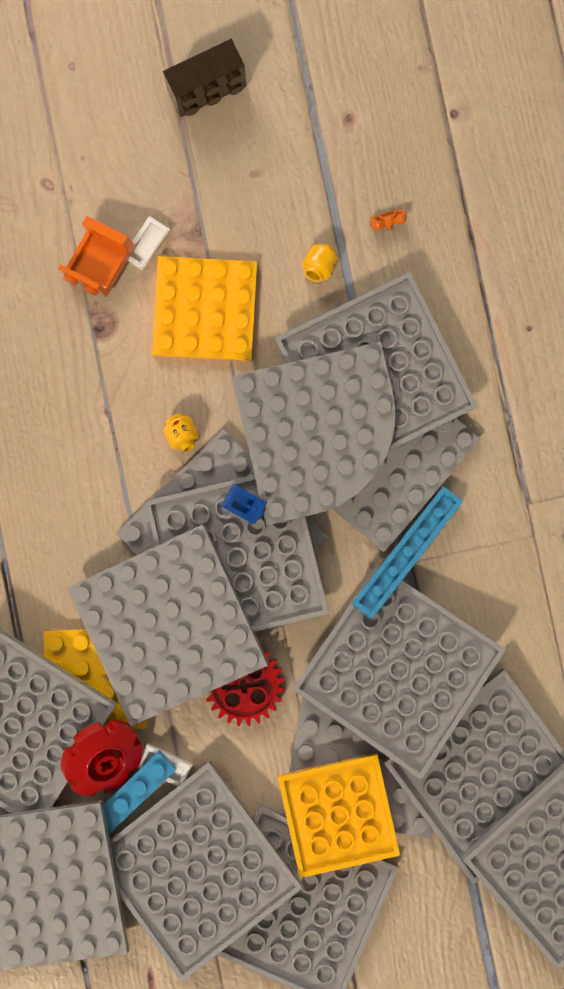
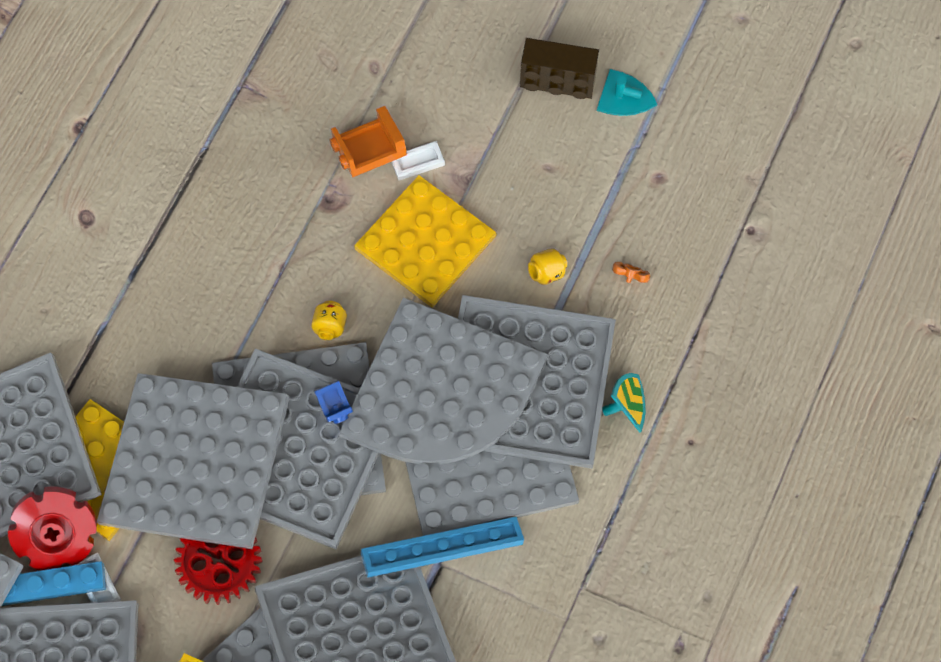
camera: 40 degrees right, 20 degrees down
(271, 63) = (625, 95): none -> teal shield
(463, 330) = (628, 398): none -> shield

